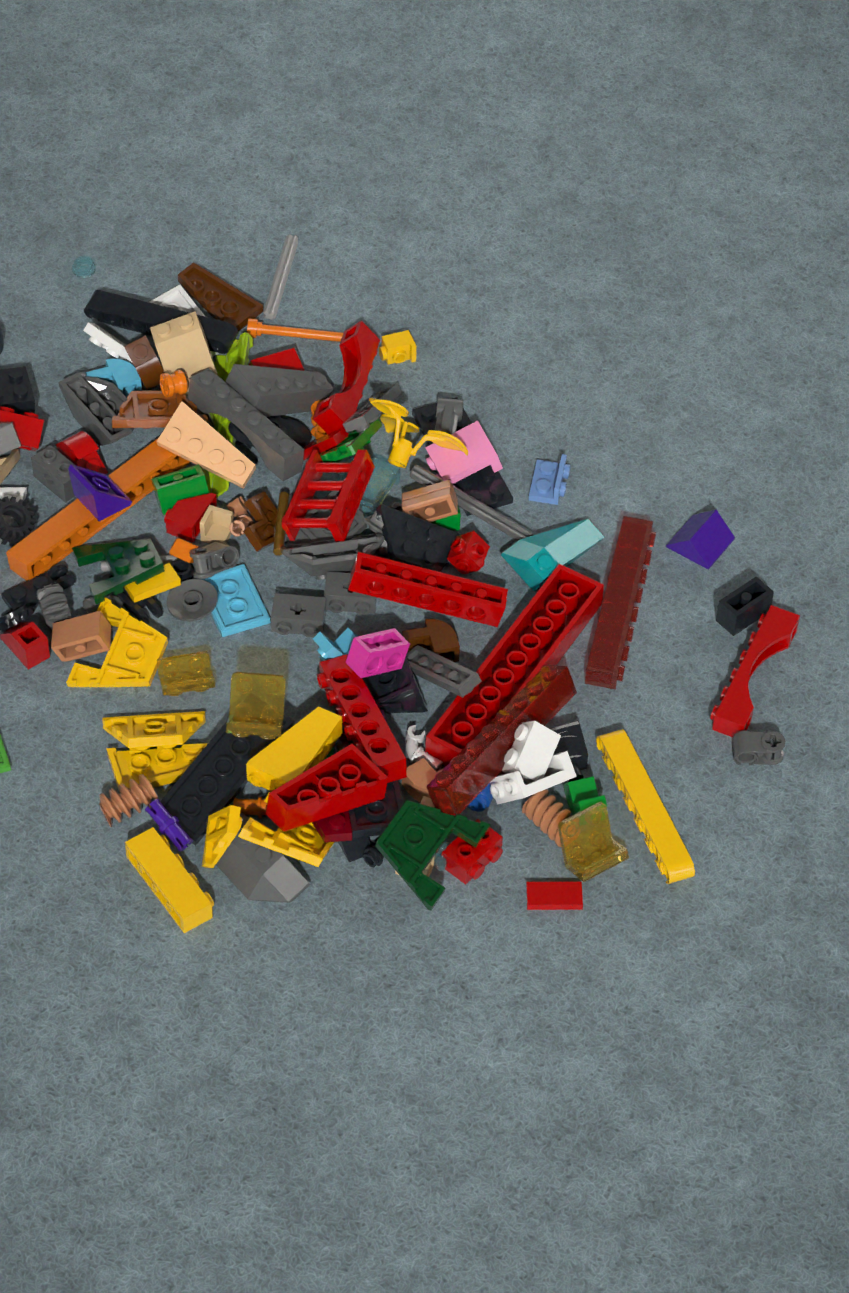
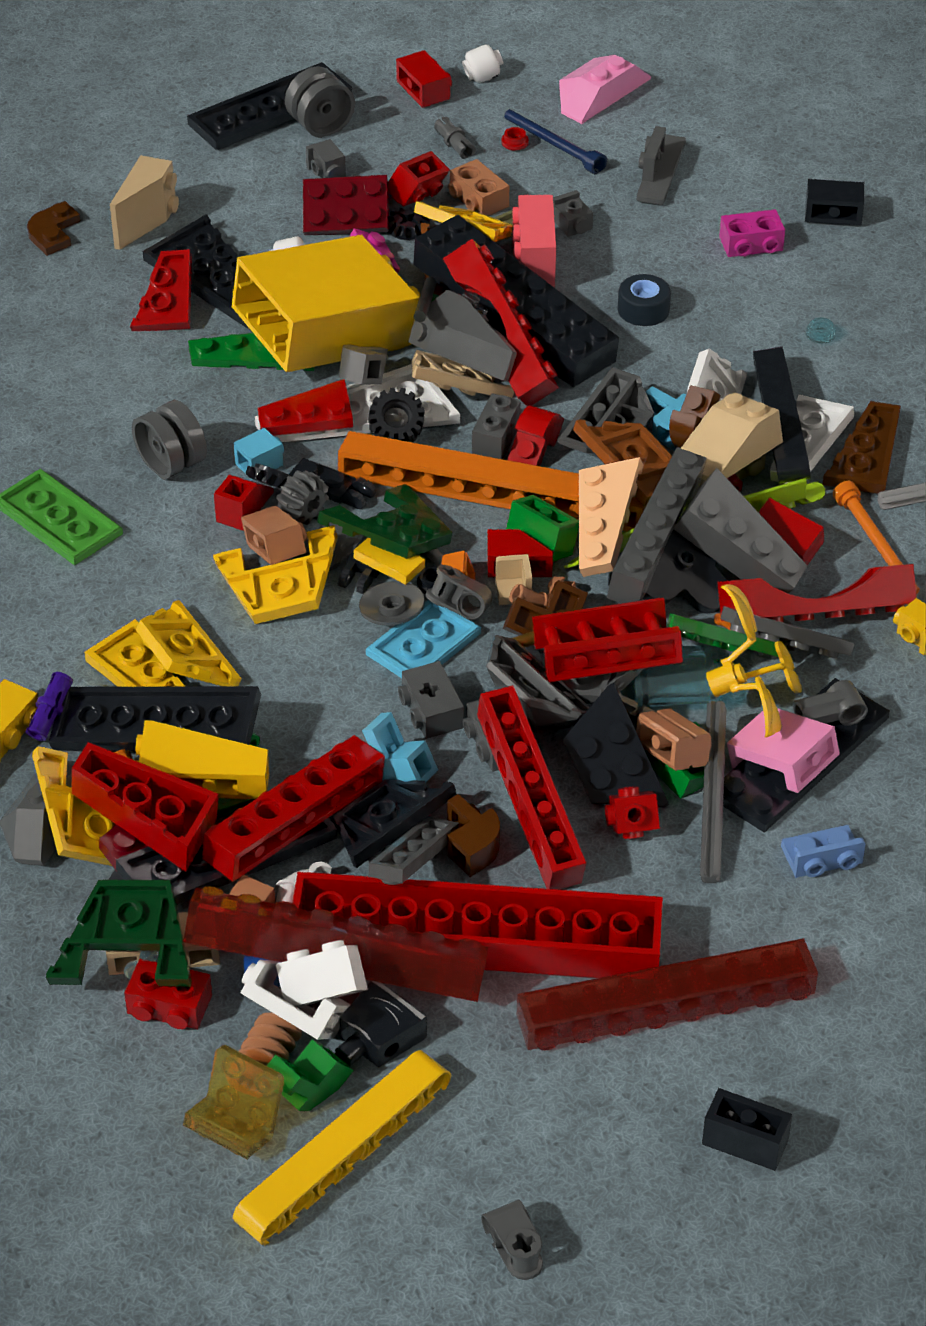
camera: 65 degrees right, 5 degrees down
(97, 492) = (470, 454): dark purple slope -> none
(127, 799) = (69, 657): nougat piece -> none
(173, 383) = (668, 442): orange wheel -> none
(185, 673) = (281, 640): clear yellow bracket -> none
(220, 832) = (61, 739): yellow wing -> none
(256, 705) = (227, 697): clear yellow bracket -> none
(325, 443) = (701, 614): red tile -> none
(377, 653) = (384, 771): dark pink brick -> none
(540, 554) = (705, 896): teal wedge -> none
(554, 896) = (152, 1106): red tile -> none
(702, 538) = (844, 1049): dark purple slope -> none
(774, 635) = (727, 1183): red arch -> none

